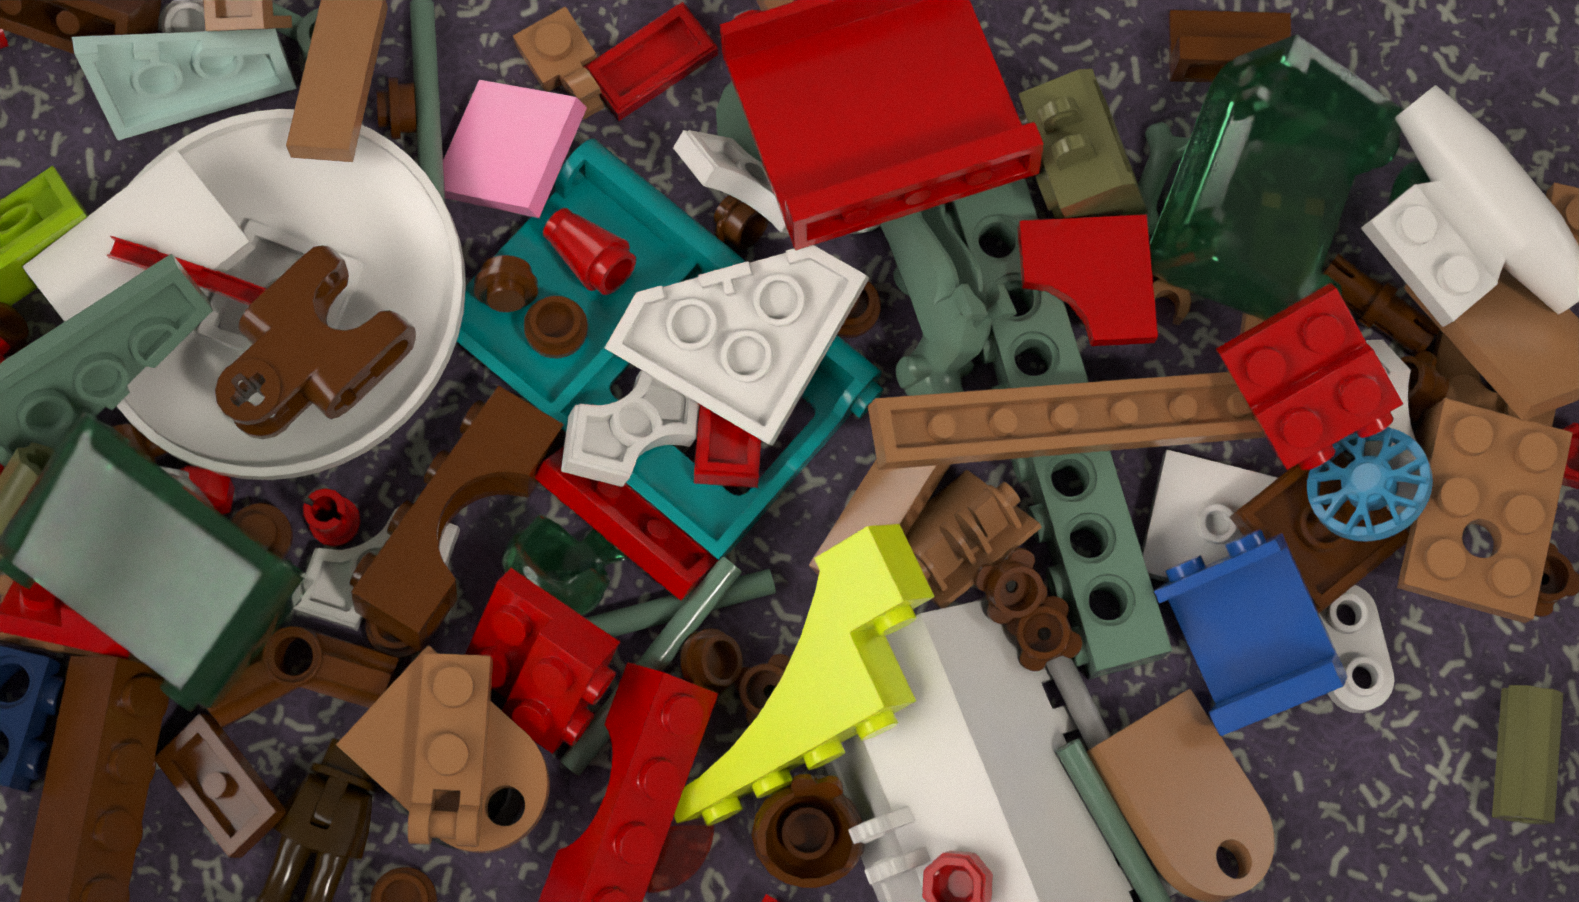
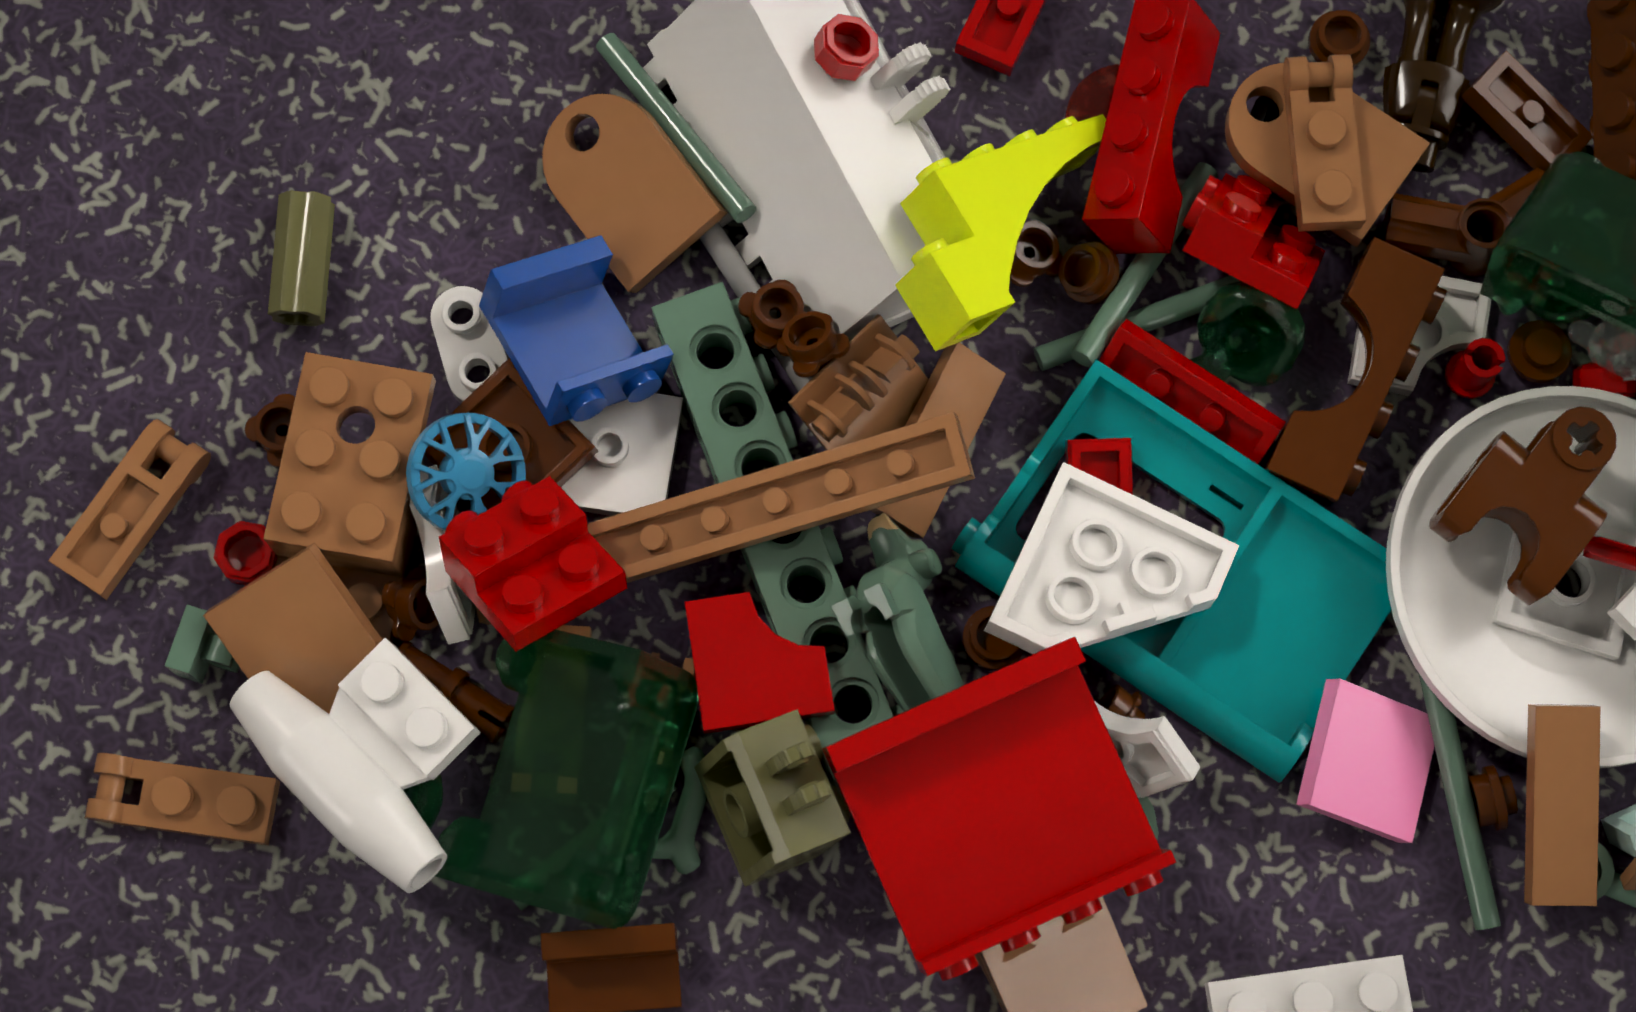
camera: 175 degrees right, 0 degrees up
(506, 283) = (1347, 608): reddish brown plate -> none
(555, 327) = (1289, 574): reddish brown plate -> none
(557, 57) = (1333, 882): medium nougat plate -> none
(590, 251) = (1268, 656): red cone -> none
(610, 437) = (1218, 457): white tile -> none
(651, 60) = (1234, 888): red tile -> none
(805, 832) = (979, 114): reddish brown hat -> none

